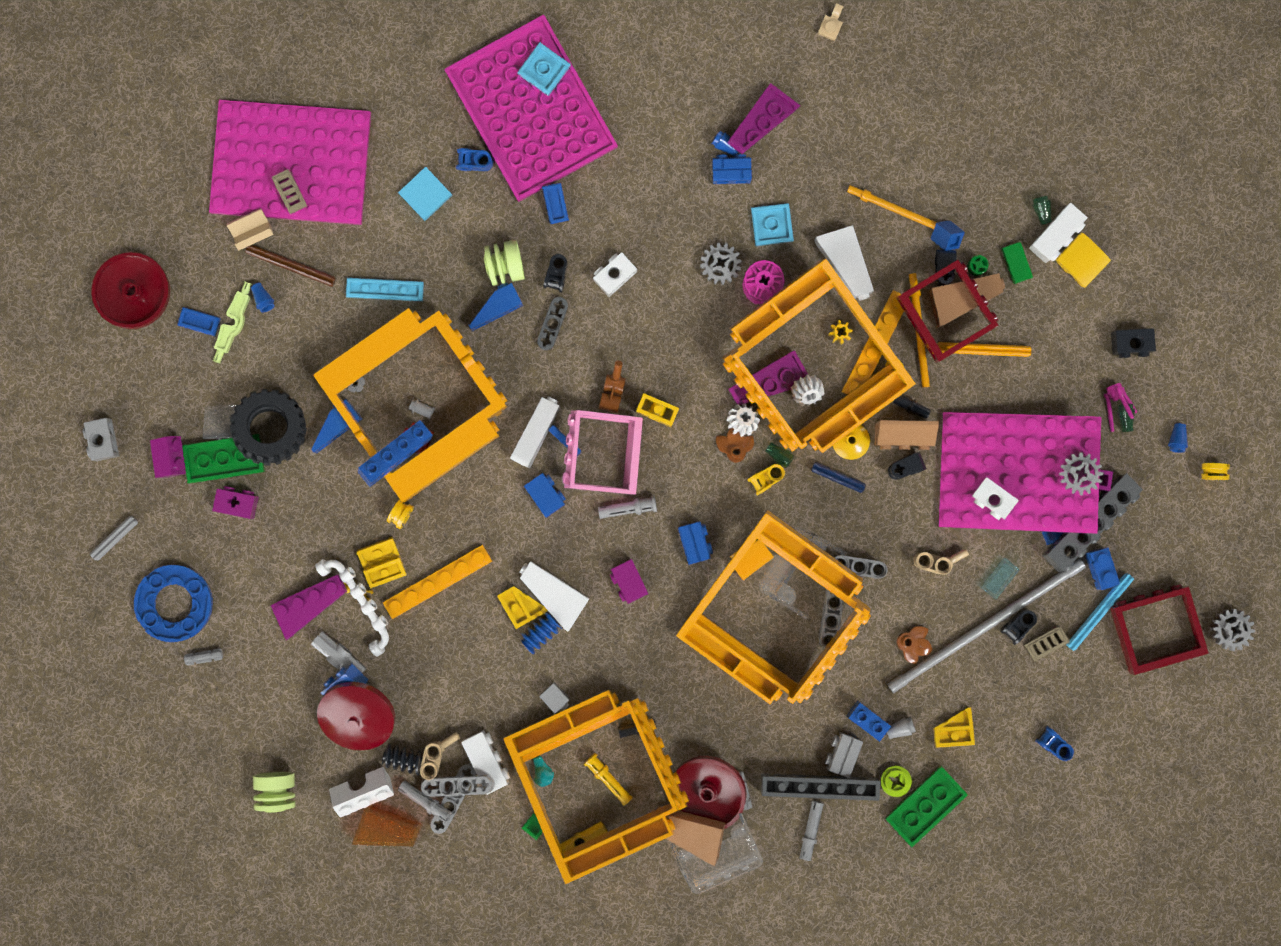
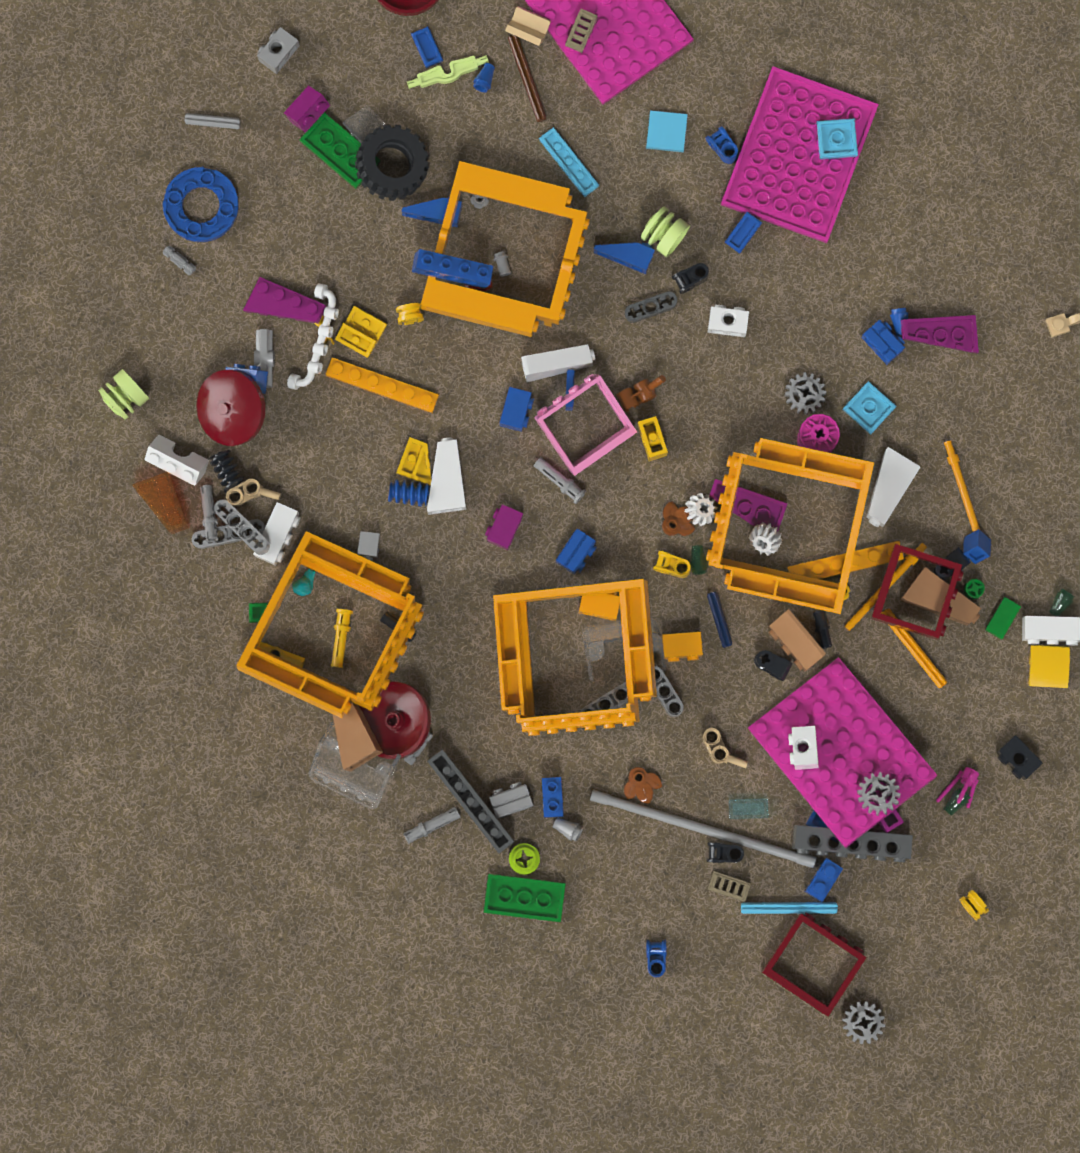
camera: 55 degrees right, 5 degrees down
(246, 507) = (311, 176): magenta brick -> none
(835, 523) = (682, 646): none -> light orange brick
(846, 331) = (835, 523): yellow gear -> none
(856, 450) = (752, 615): yellow dish -> none
(955, 731) = (601, 872): yellow wing -> none
(1178, 439) = (975, 856): blue cone -> none

